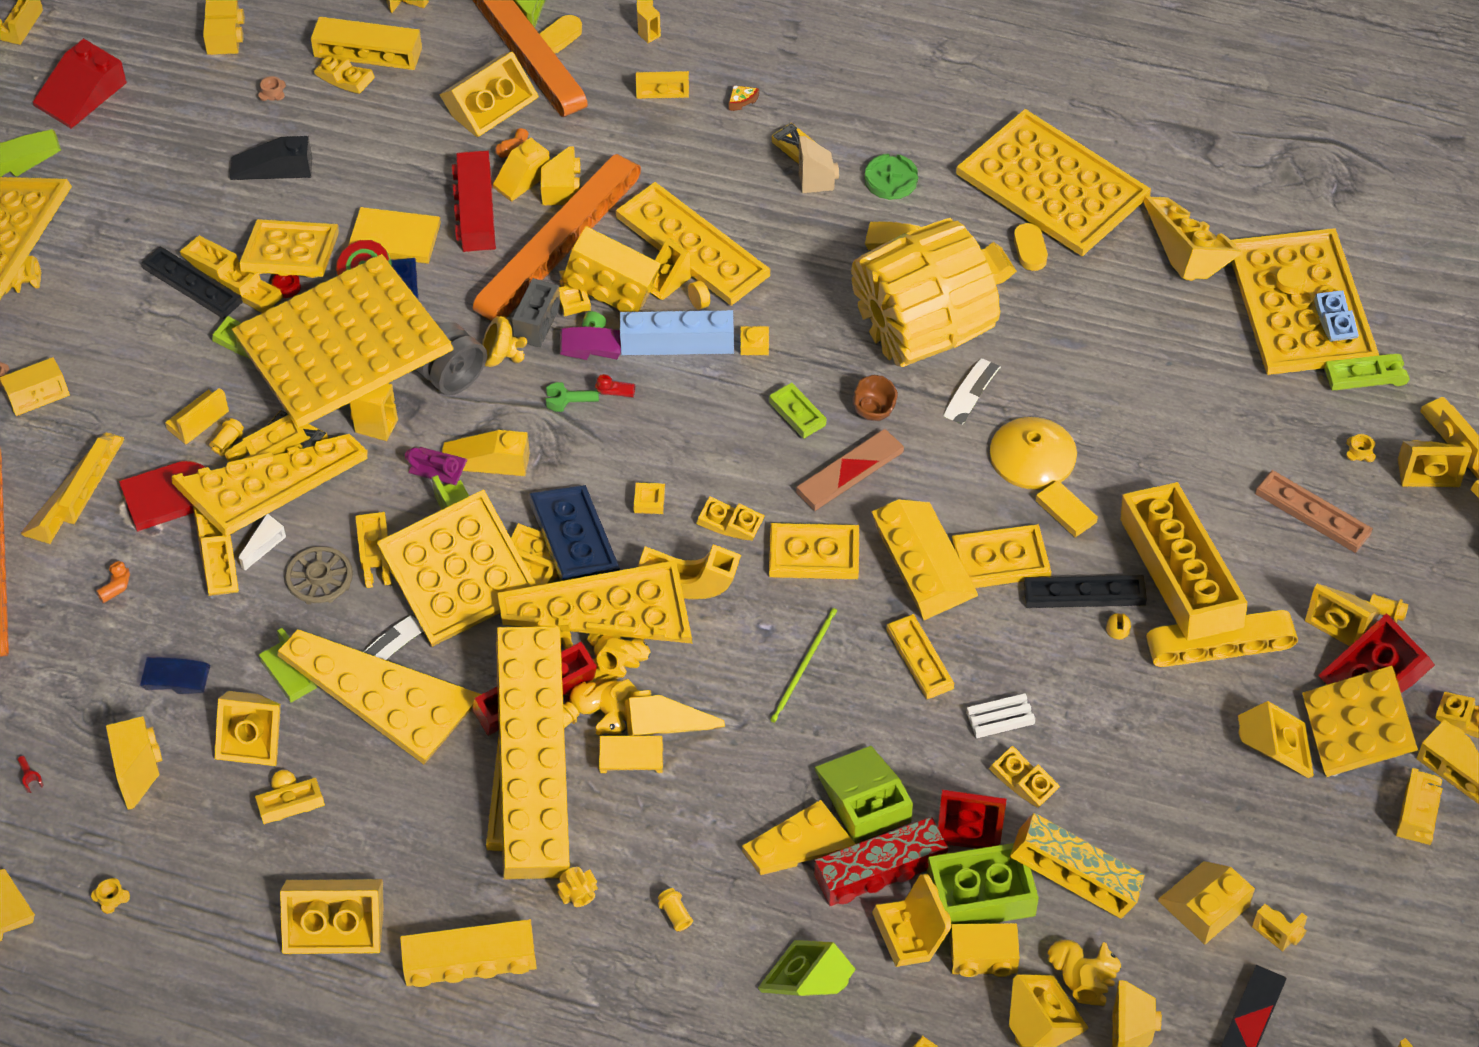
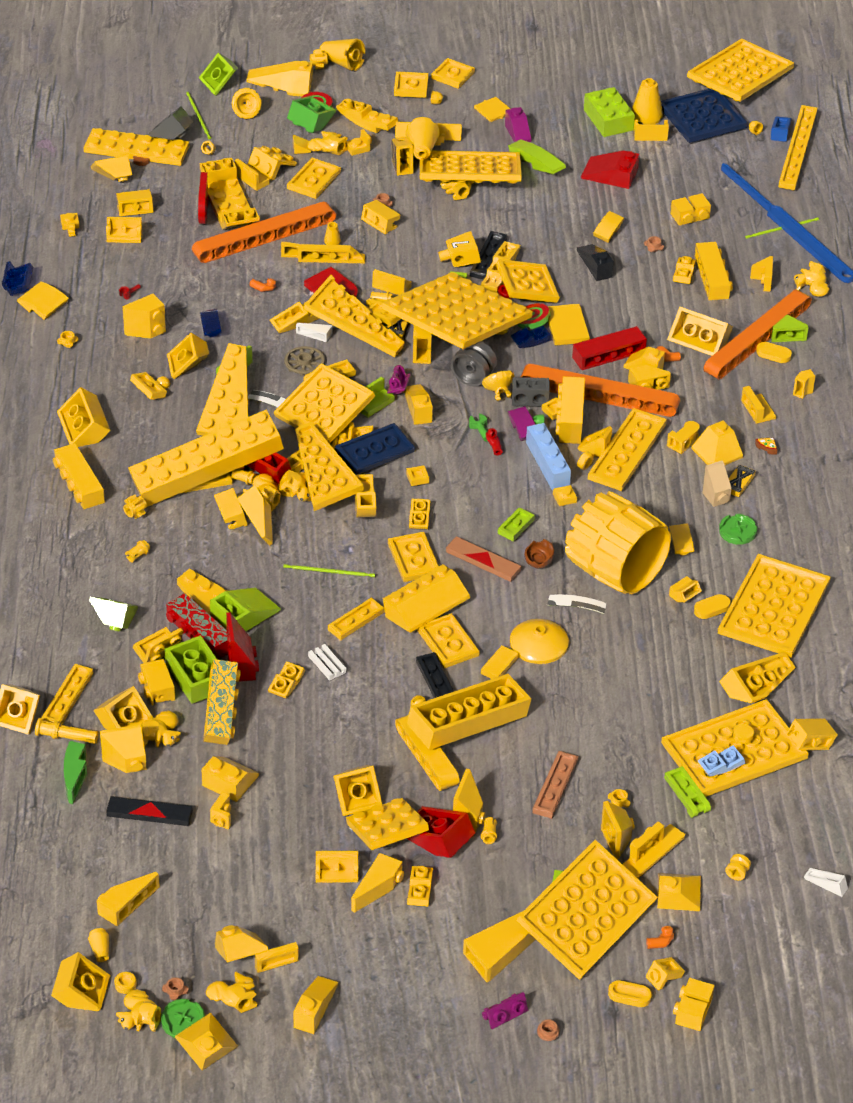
camera: 70 degrees right, 10 degrees down
(50, 458) = (332, 234): none -> yellow cone
(177, 305) = (461, 250): none -> yellow torso
(209, 124) = (608, 226): none -> yellow slope
(696, 173) = (684, 437): none -> yellow leg
(727, 146) = (718, 444): none -> yellow slope
(1309, 211) = (812, 734): none -> yellow hinge

